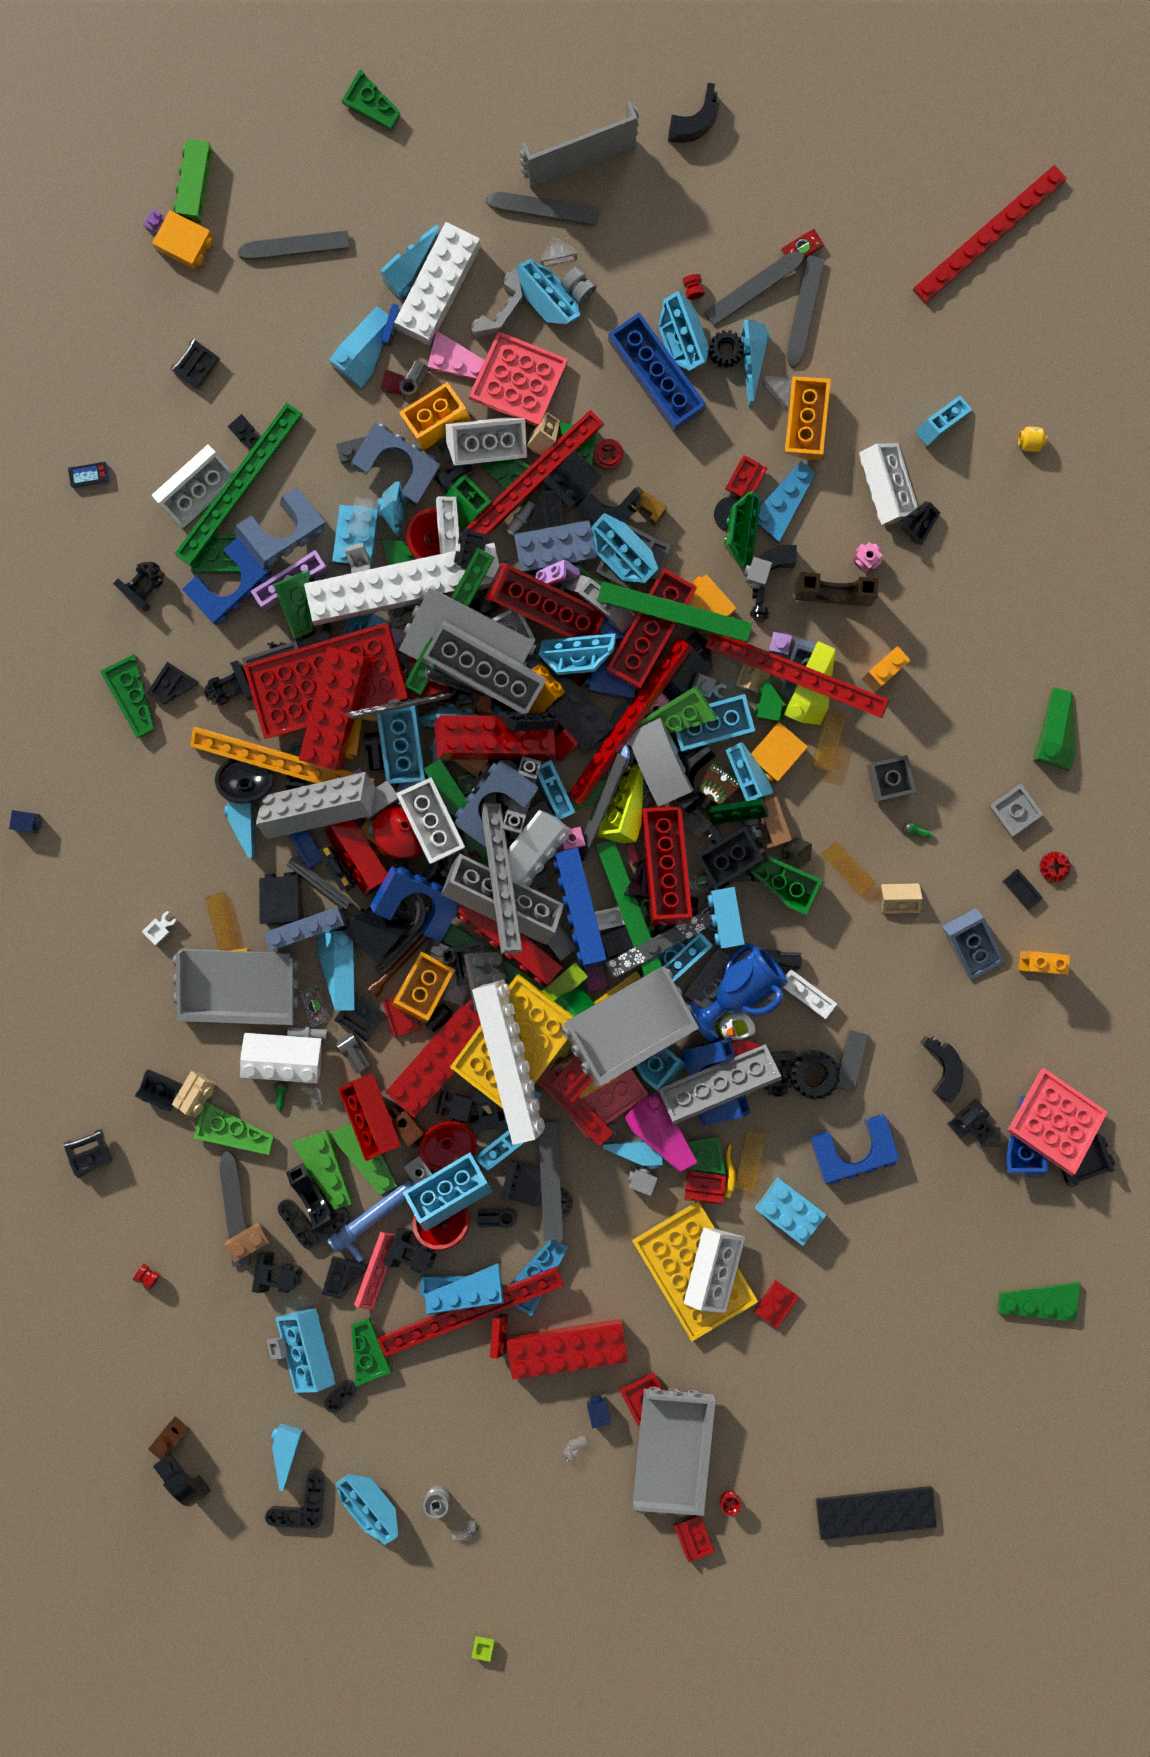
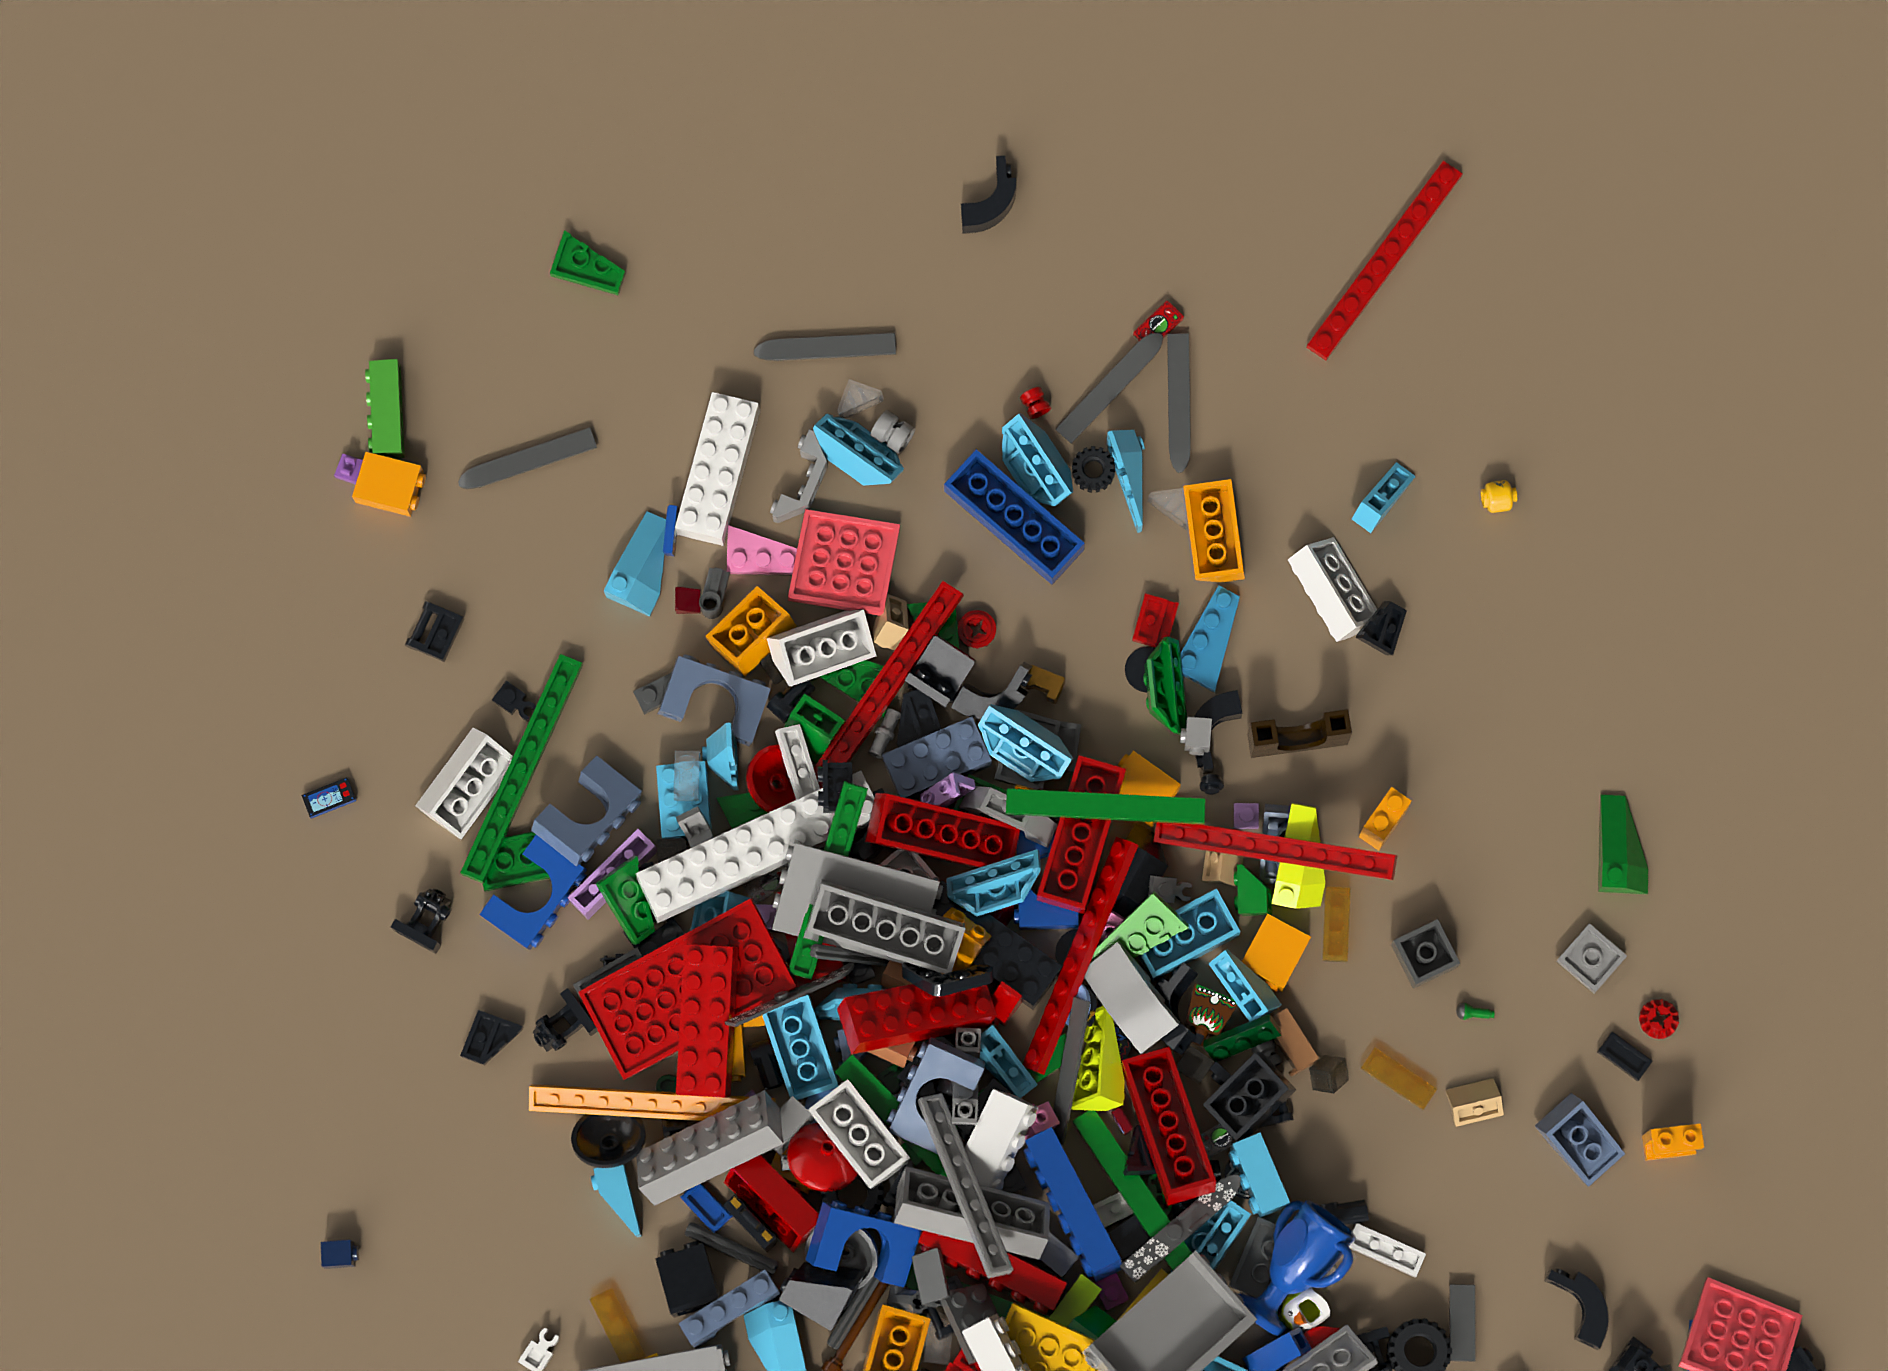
camera: 15 degrees left, 10 degrees down
(127, 688) = (435, 1058): green wing -> none
(403, 270) = (672, 462): medium azure wedge -> none
(461, 940) = (931, 1277): none -> dark grey panel
(580, 151) = (860, 273): light grey panel -> none
(789, 884) = (1331, 1115): green wedge -> none
(865, 563) = (1329, 693): bright pink brick -> none

